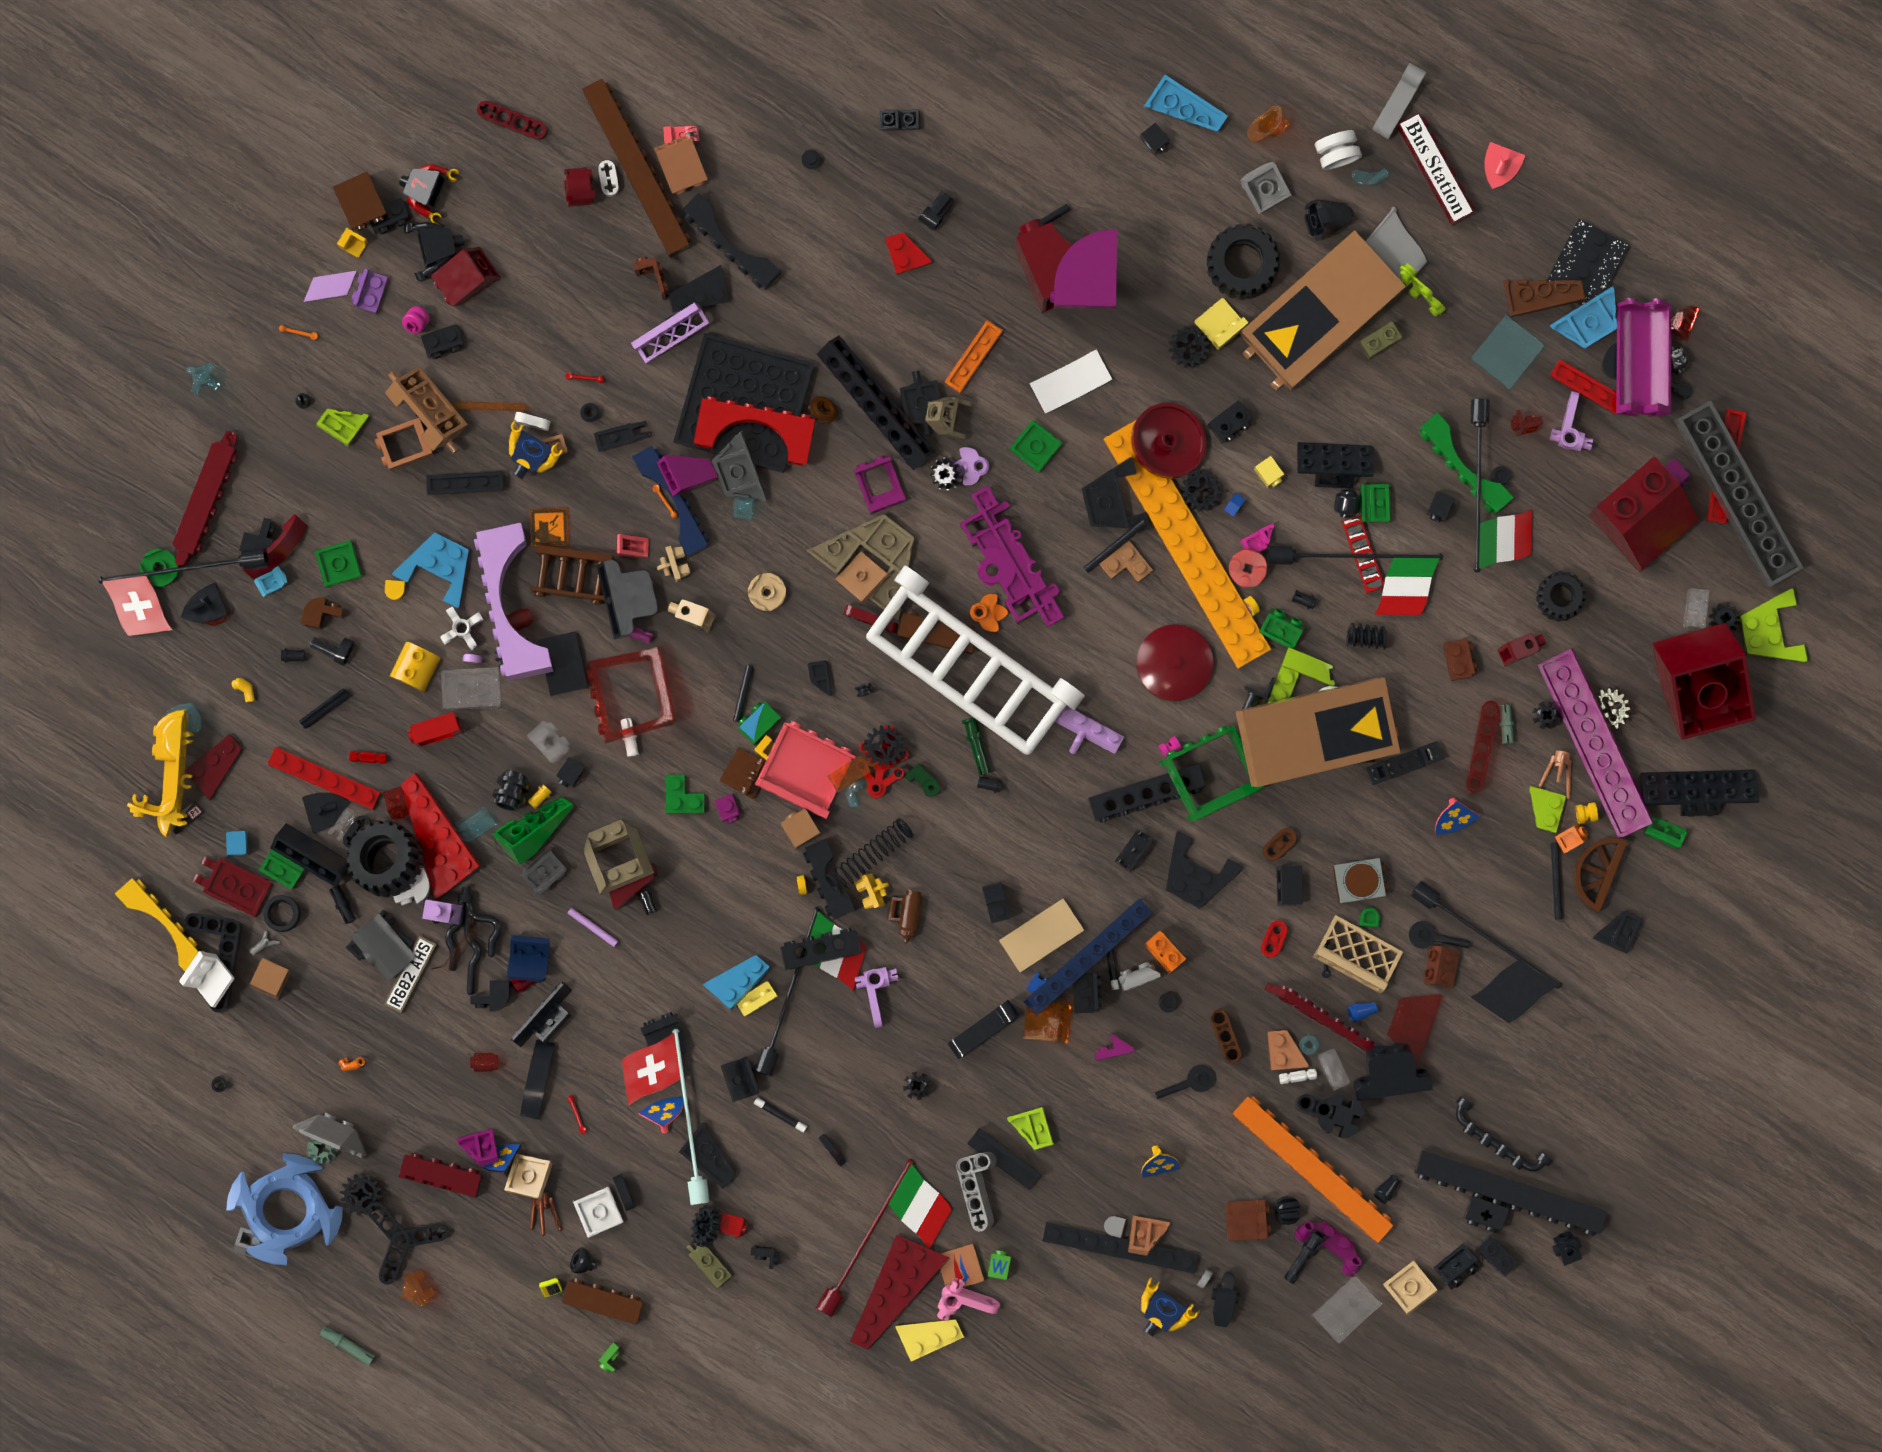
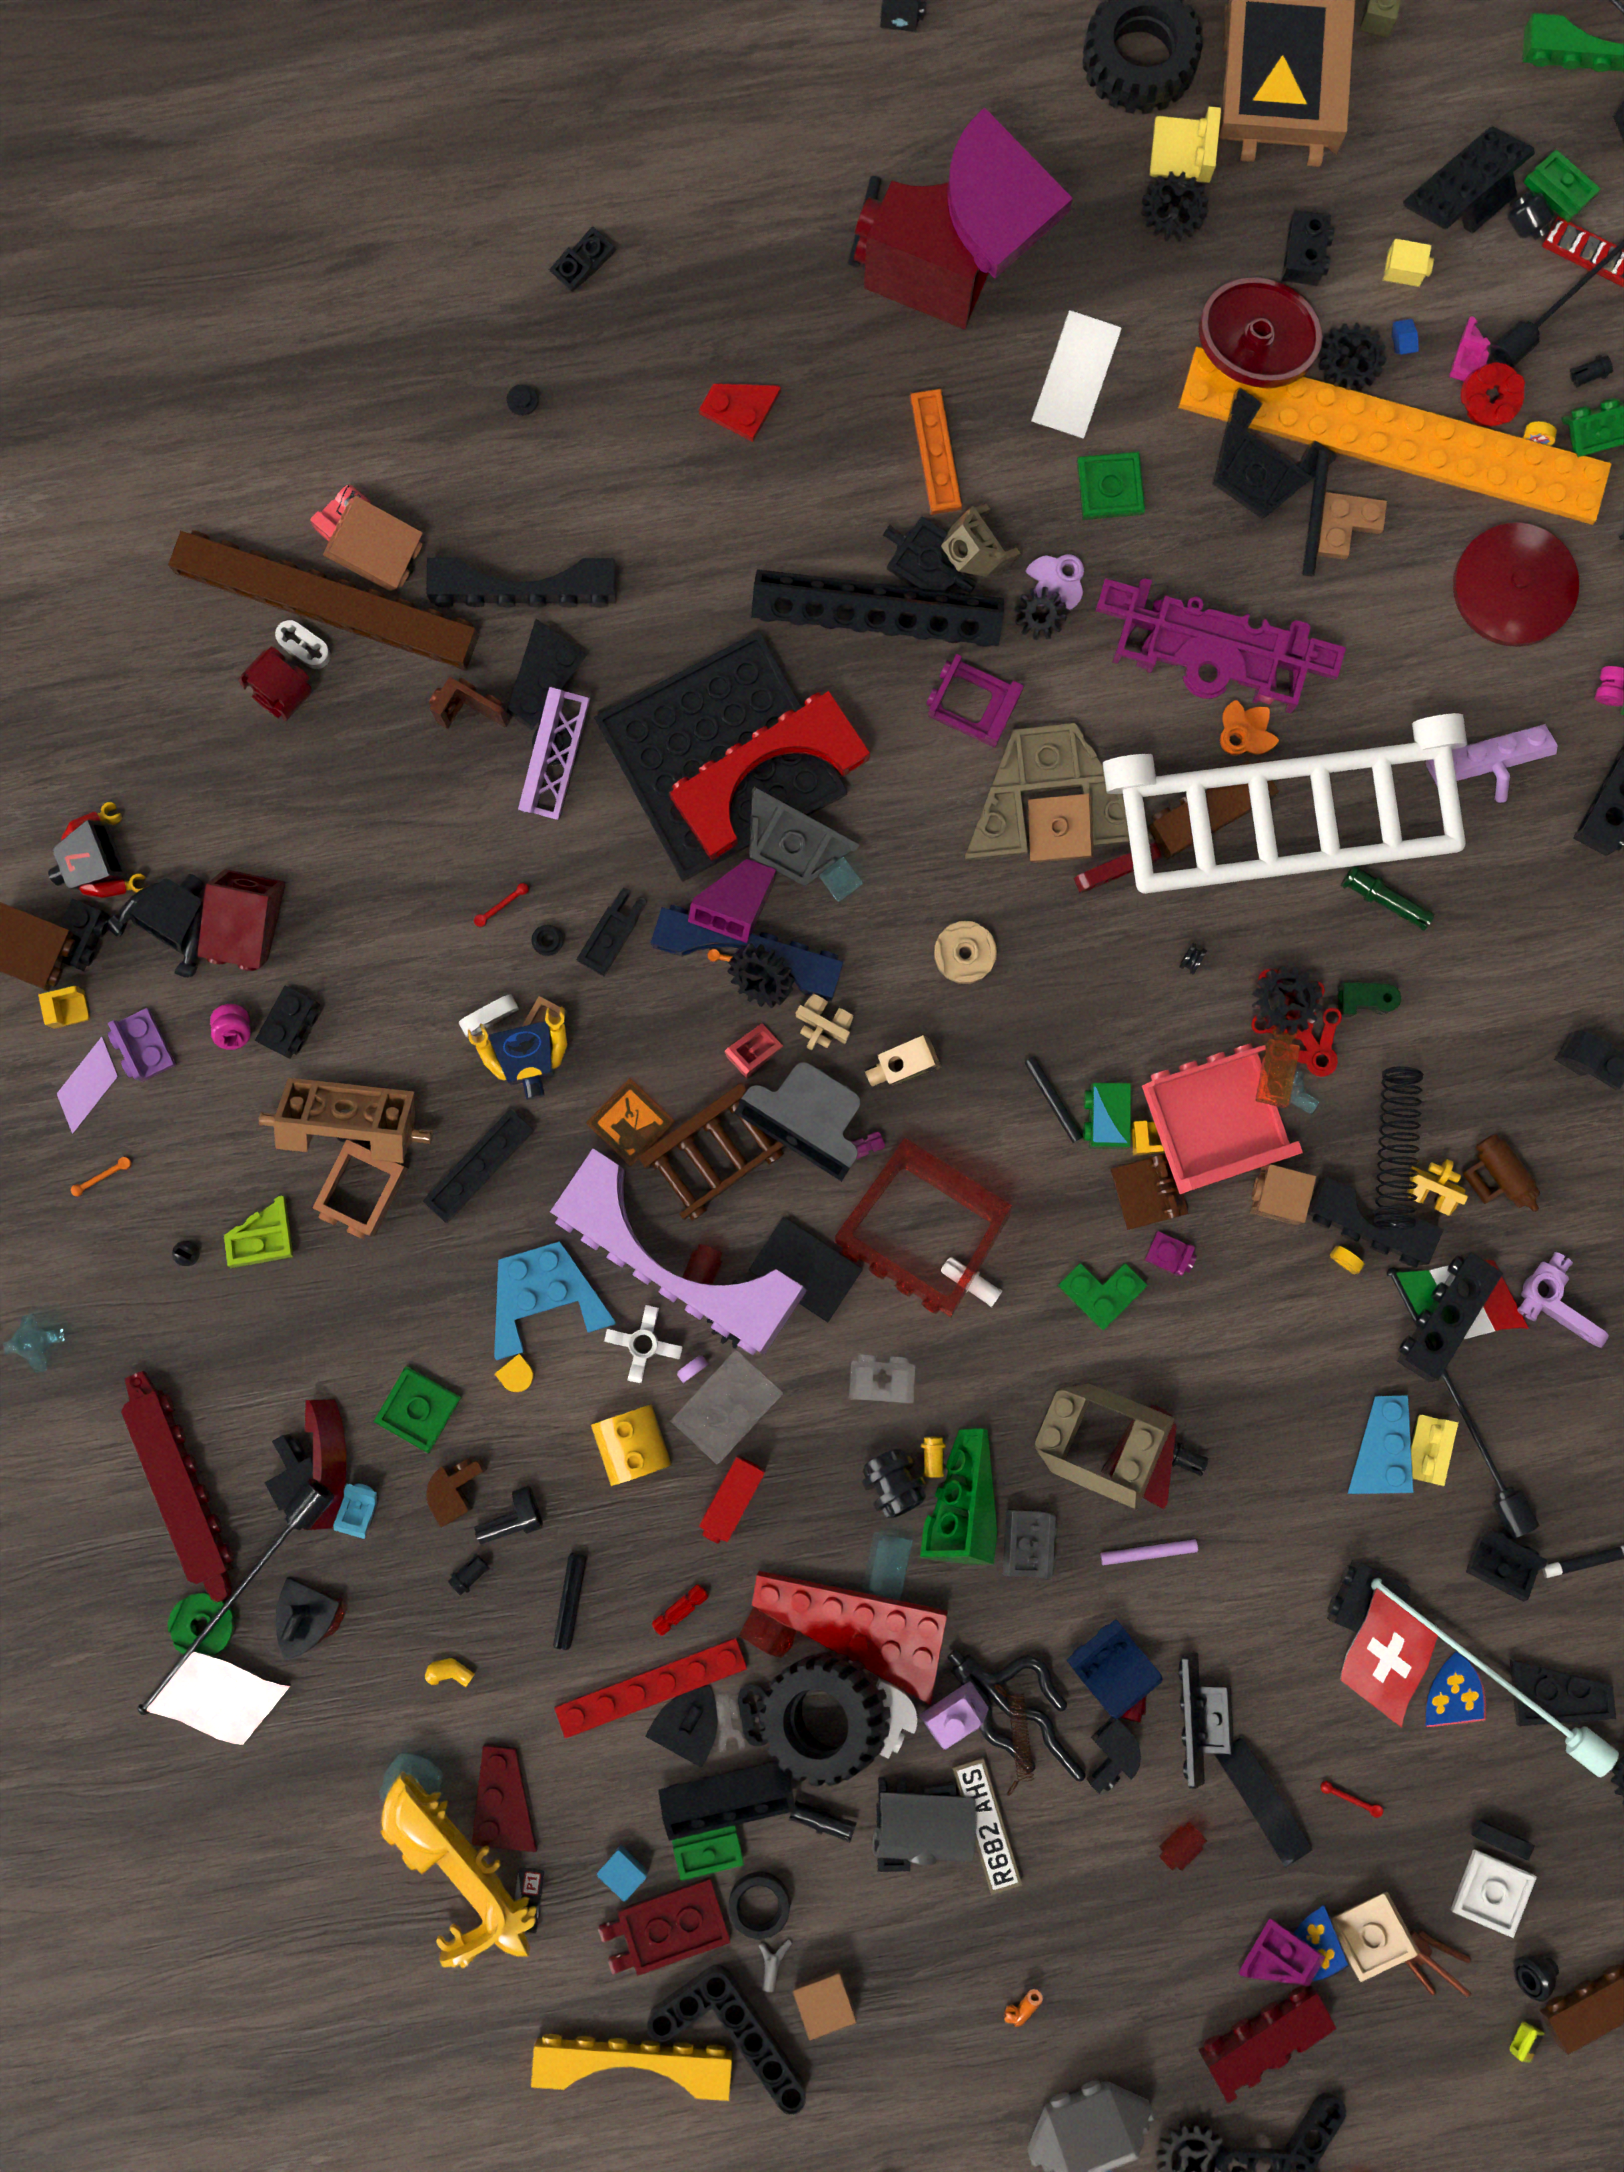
camera: 45 degrees left, 0 degrees up
(208, 976) = (750, 2078): white bracket -> none
(487, 405) = (416, 1048): clear orange bar -> none
(510, 123) = (121, 689): dark red beam -> none
(570, 773) = (943, 1392): black brick -> none
(666, 516) = (761, 975): none -> black gear
(819, 676) = (1124, 992): black tile -> none
(827, 407) = (822, 667): reddish brown gear -> none
(934, 213) = (729, 328): black piece -> none
(989, 784) = (1447, 928): black pin -> none

